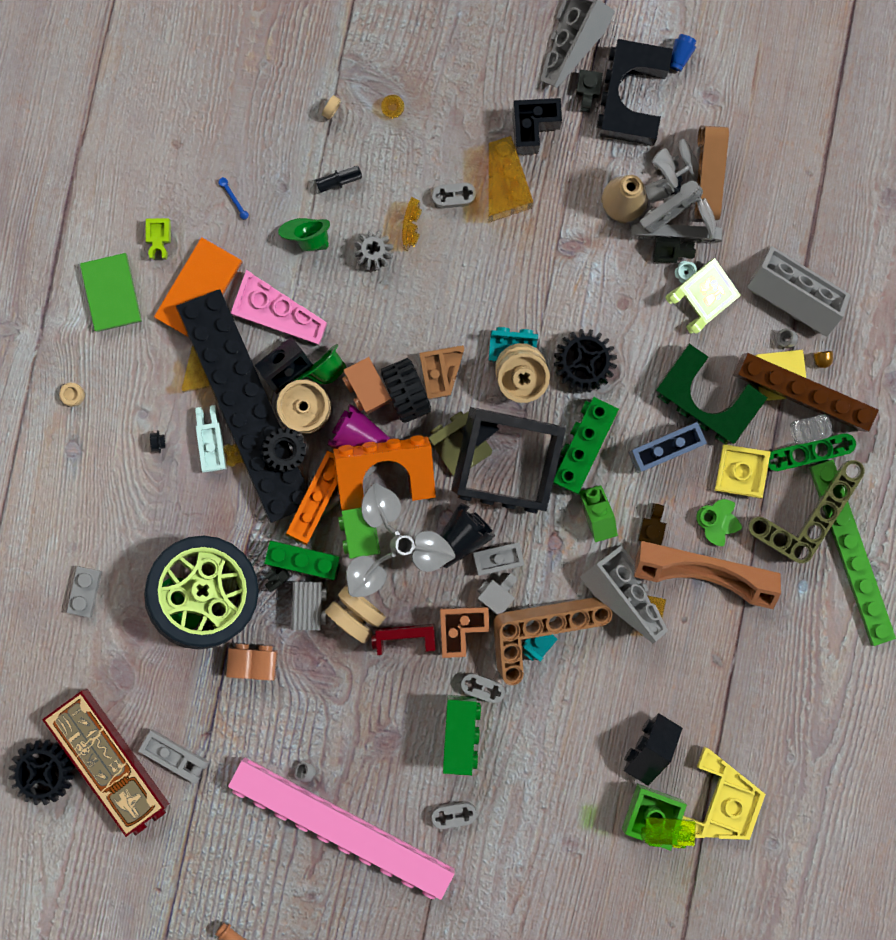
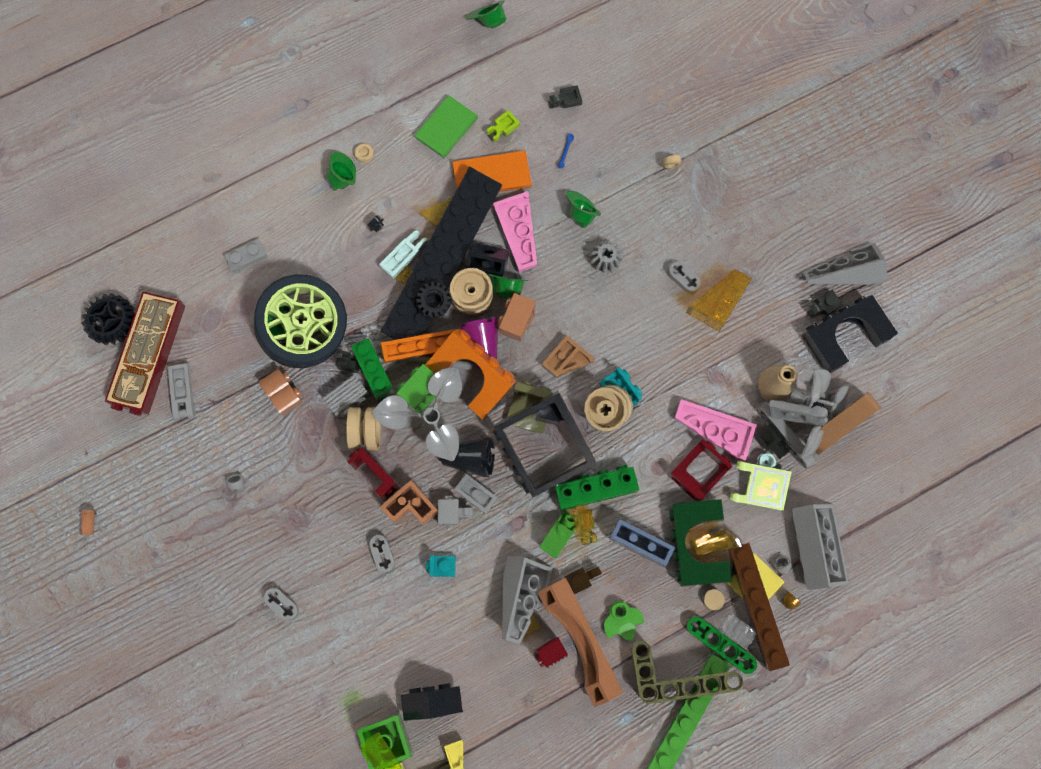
camera: 50 degrees right, 10 degrees down
(27, 152) = (489, 16): none -> green piece
(74, 432) = (341, 171): none -> green piece
(180, 148) = (568, 97): none -> pearl dark grey plate
(338, 179) = (632, 201): black axle -> none
(342, 828) = (215, 538): bright pink brick -> none
(392, 99) = (705, 192): clear yellow plate -> none
(406, 390) = (534, 344): black tyre -> none
(410, 230) = (637, 268): clear yellow slope -> none
(461, 735) = (337, 562): green brick -> none
(532, 117) = (773, 282): black brick -> none
(541, 627) = (453, 557): medium nougat beam -> none
(588, 370) = (658, 427): black gear -> none
(607, 484) = (585, 523): none -> clear yellow plate
(623, 287) = (719, 428): none -> bright pink wing
(650, 357) = (690, 484): none -> dark red window
(682, 51) = (903, 342): blue cone -> none
(697, 609) = (550, 653): none -> dark red brick
(719, 381) = (714, 542): none -> clear yellow wing
(742, 471) = (669, 608): light yellow tile -> none
(766, 425) = (713, 599): none -> tan tile

